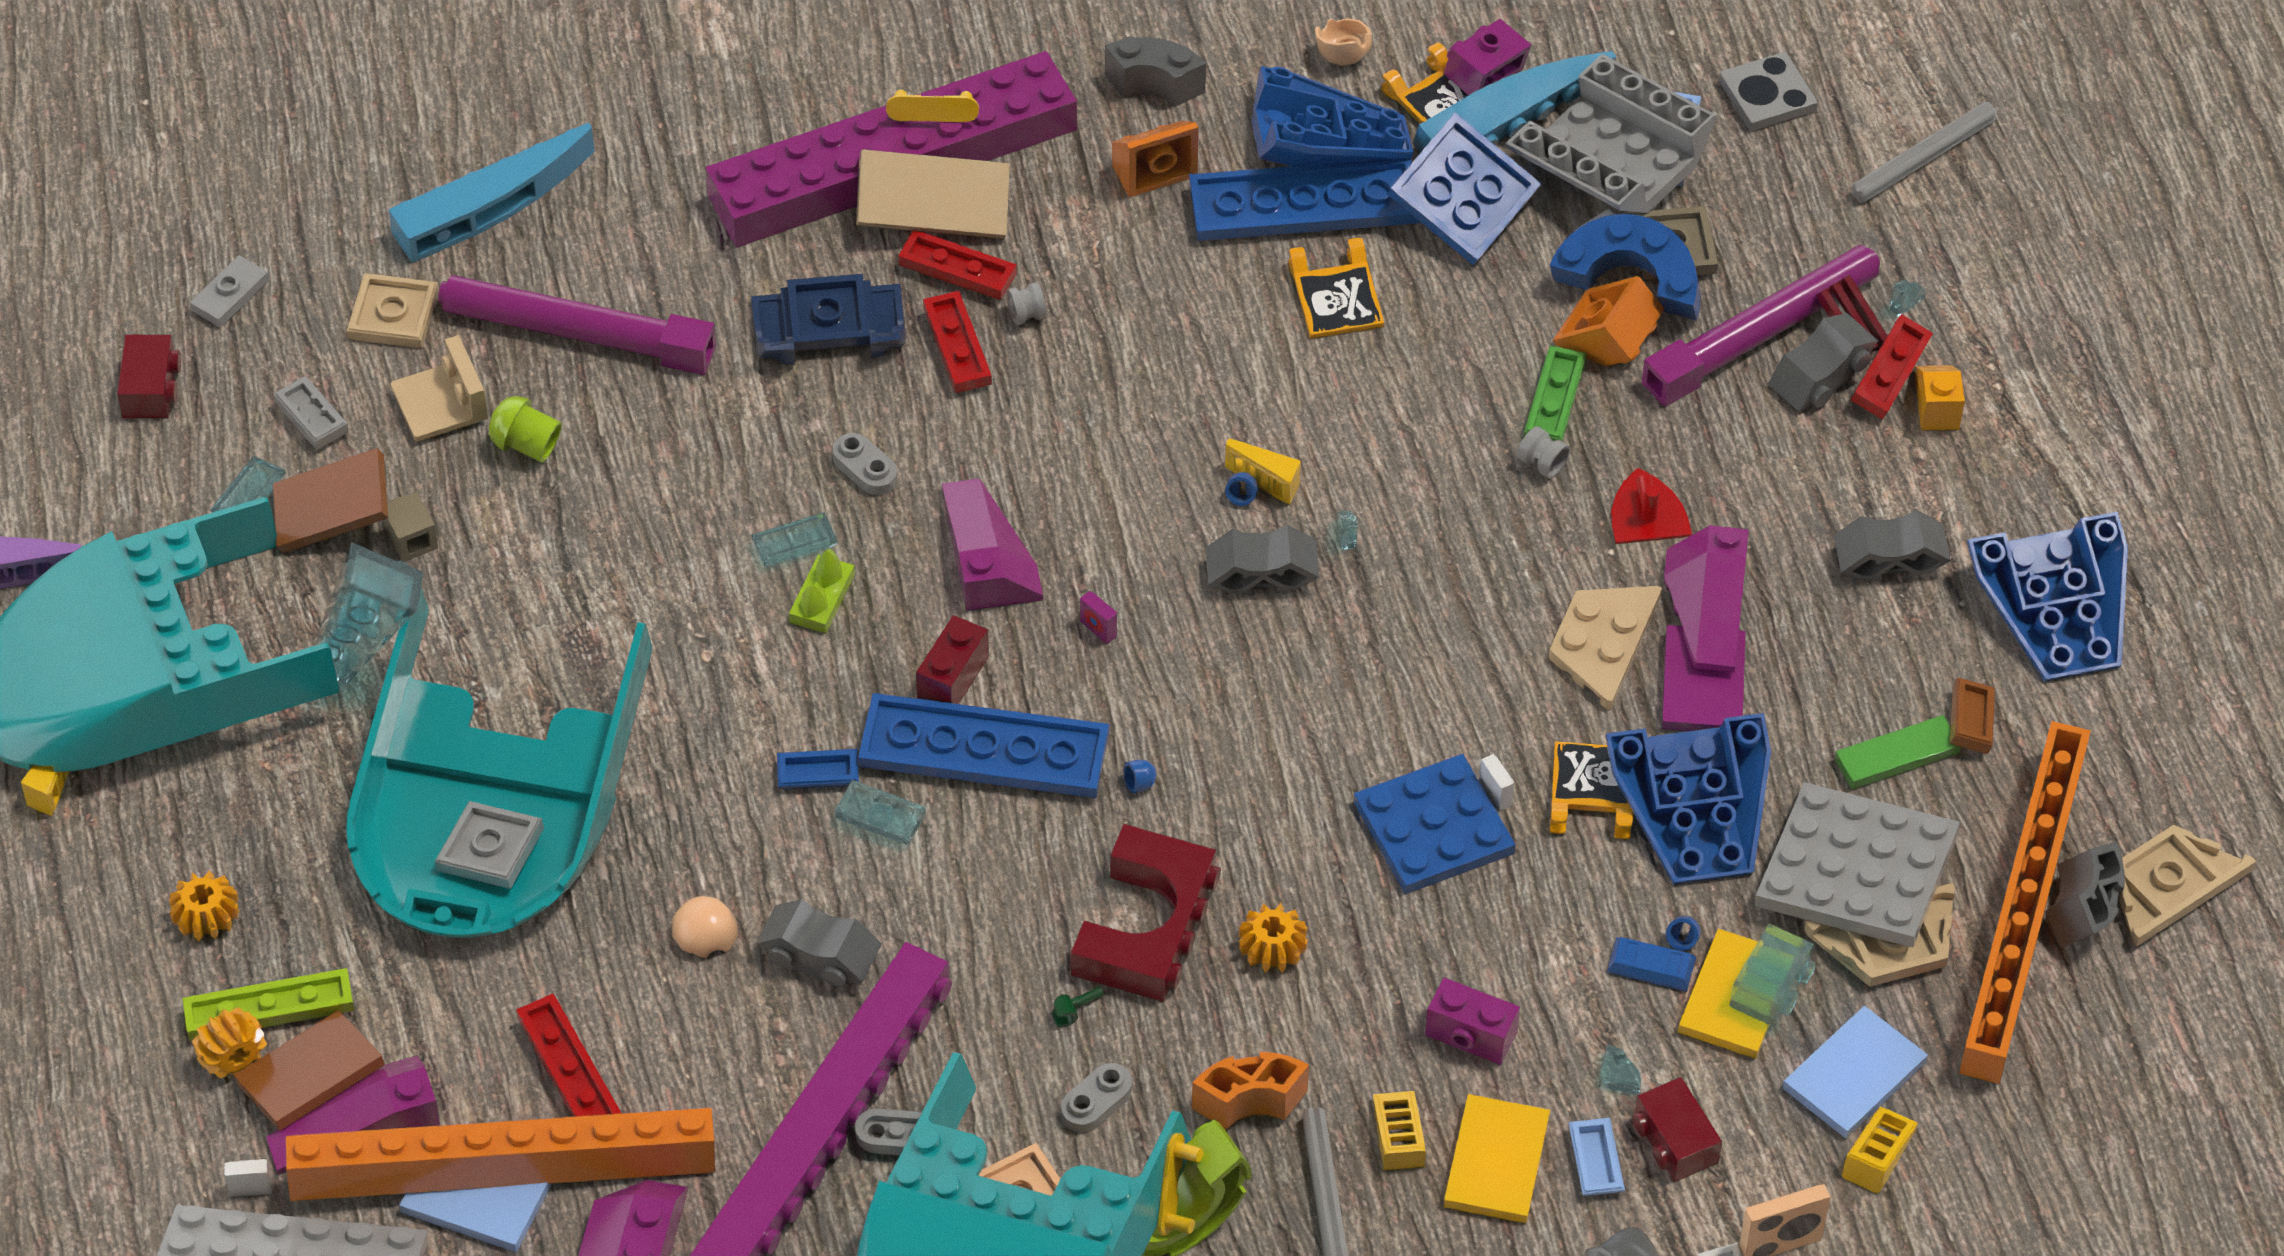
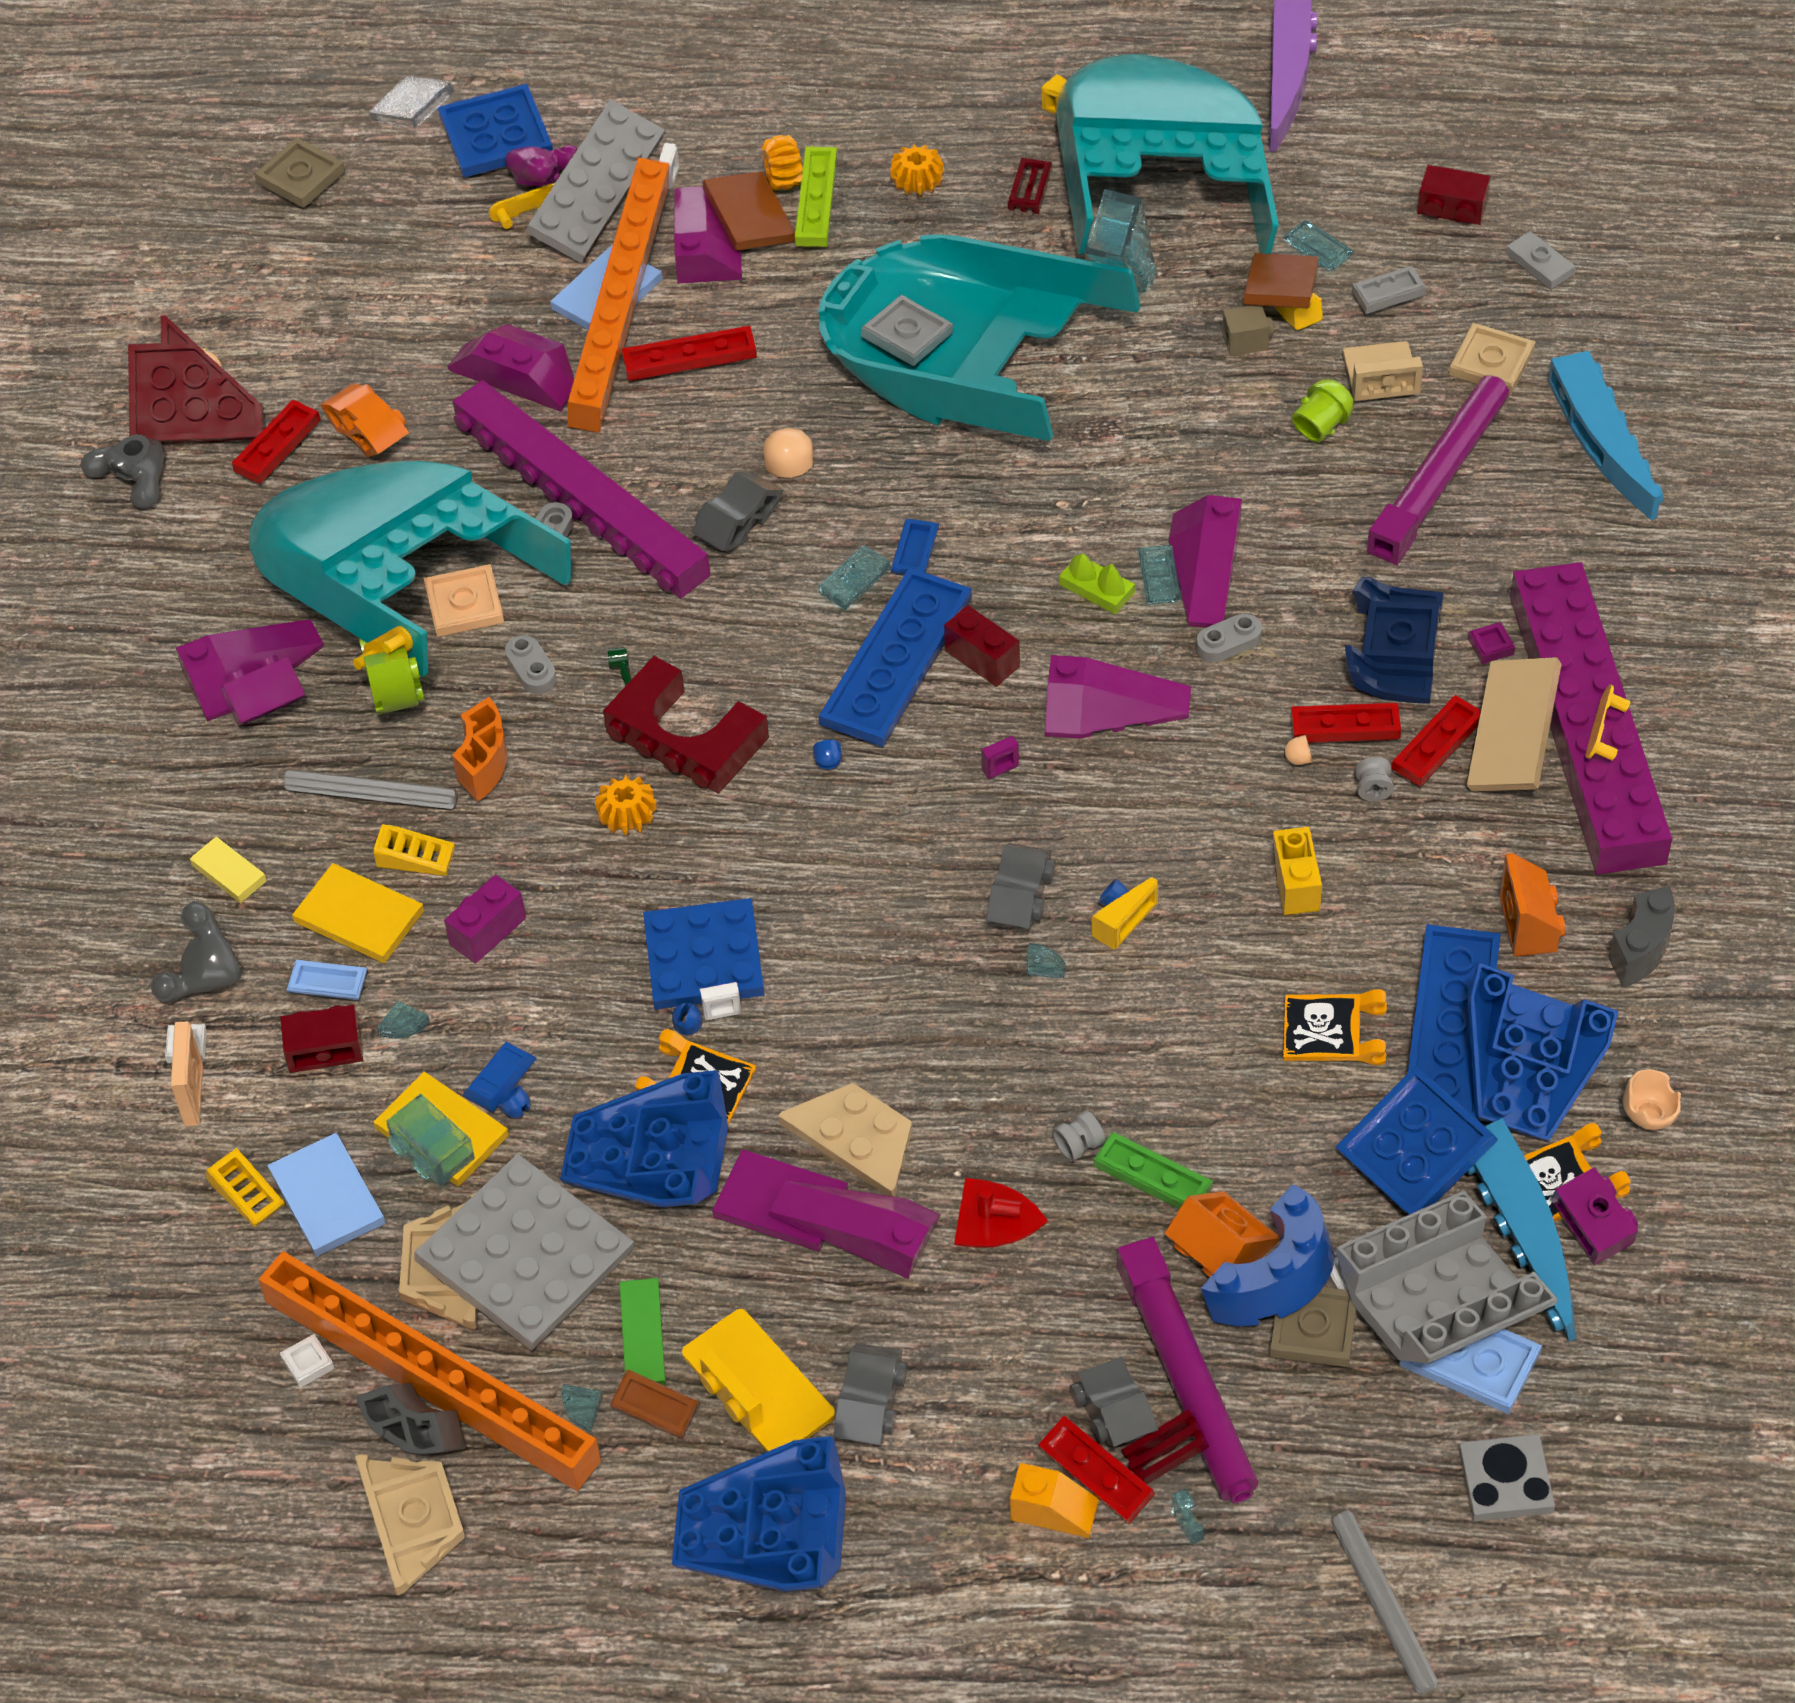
camera: 110 degrees right, 0 degrees up
(198, 799) = (1026, 202): none -> dark red tile
(752, 496) = (1204, 554): none -> magenta wedge
(807, 248) = (1491, 642): none -> magenta tile
(1005, 372) = (1298, 751): none -> light nougat hinge
(1171, 337) = (1297, 871): none -> yellow slope
(1520, 815) = (692, 1022): none -> blue hinge
(1912, 644) = (757, 1382): none -> yellow bracket
(1994, 781) = (581, 1405): none -> clear light blue tile
(2047, 1026) = (307, 1360): none -> white tile

